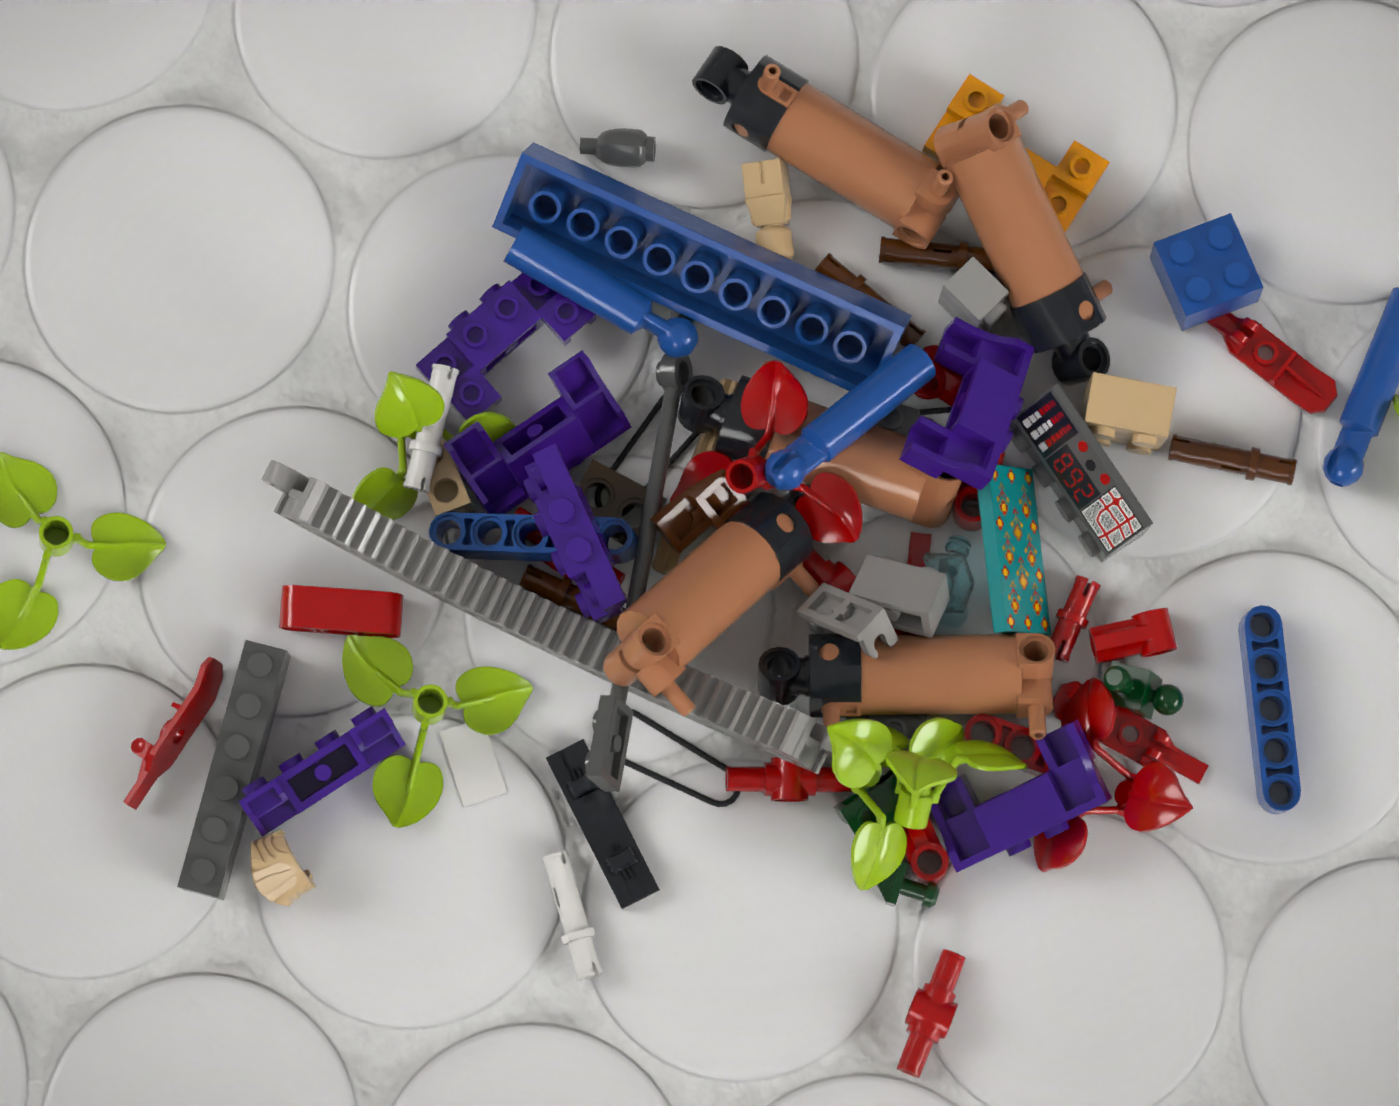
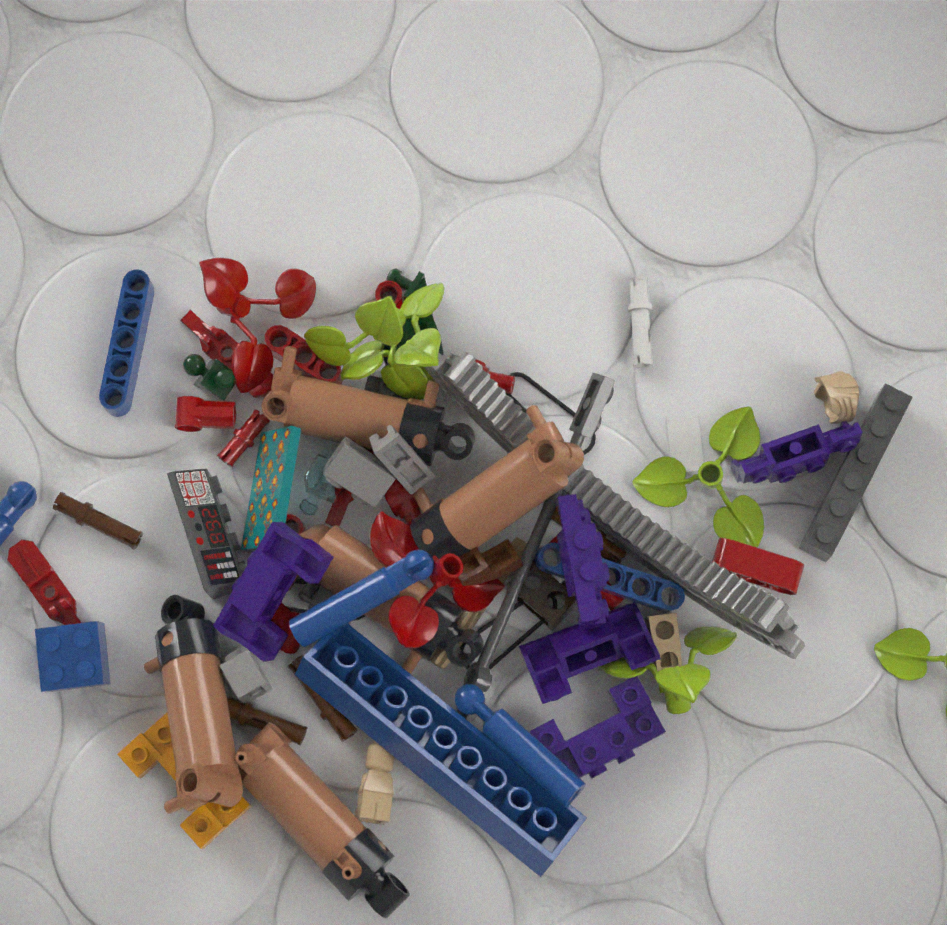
camera: 160 degrees left, 5 degrees down
(176, 731) = (892, 509): red piece -> none
(427, 442) = (674, 657): white pin -> none
(603, 827) = (616, 415): black hinge -> none
(621, 147) = (474, 861): dark grey plant -> none
(931, 1013) = (414, 202): red pin -> none
(1042, 804) = (304, 307): dark purple bracket -> none
(1128, 412) = (161, 565): tan brick -> none

